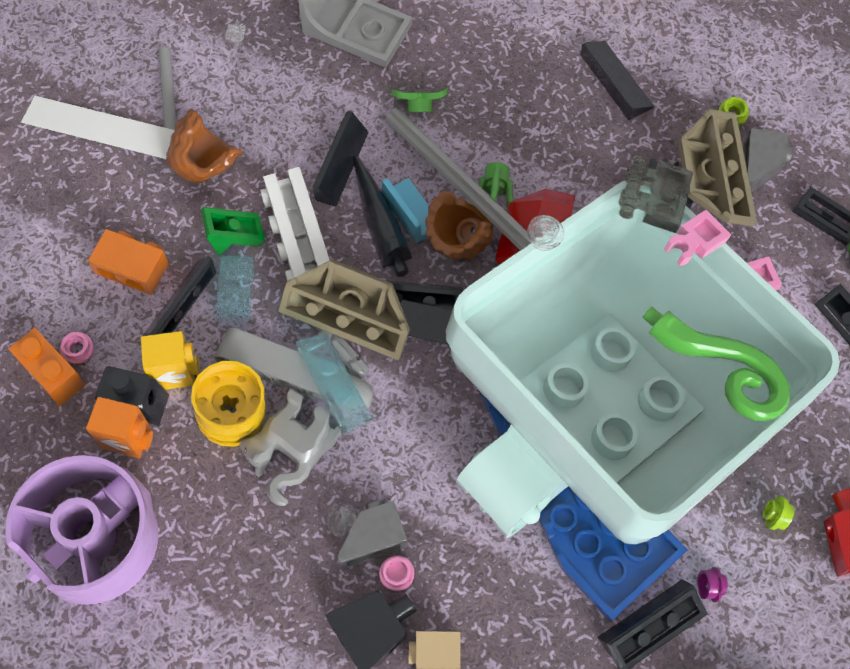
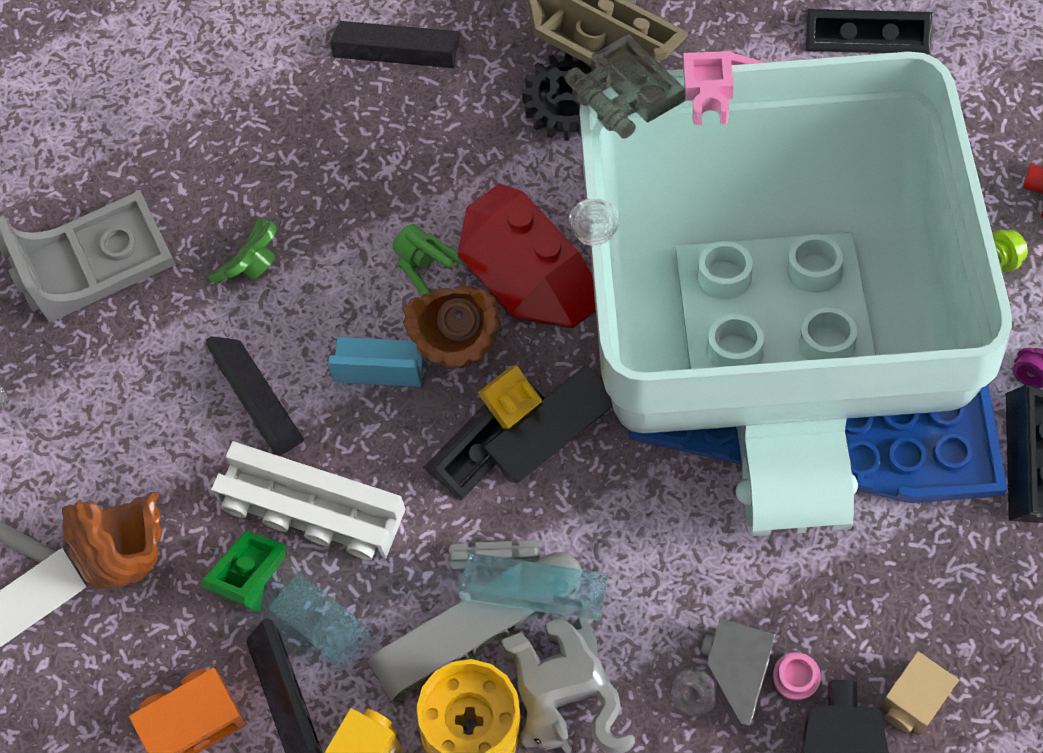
camera: 45 degrees left, 0 degrees up
(348, 306) = (456, 505): dark tan wedge -> none
(381, 222) = (367, 403): black piece -> none
(441, 291) = (510, 397): none -> yellow tile
(459, 179) = (412, 281): light grey axle -> none
(684, 340) = (817, 178): bright green plant -> none

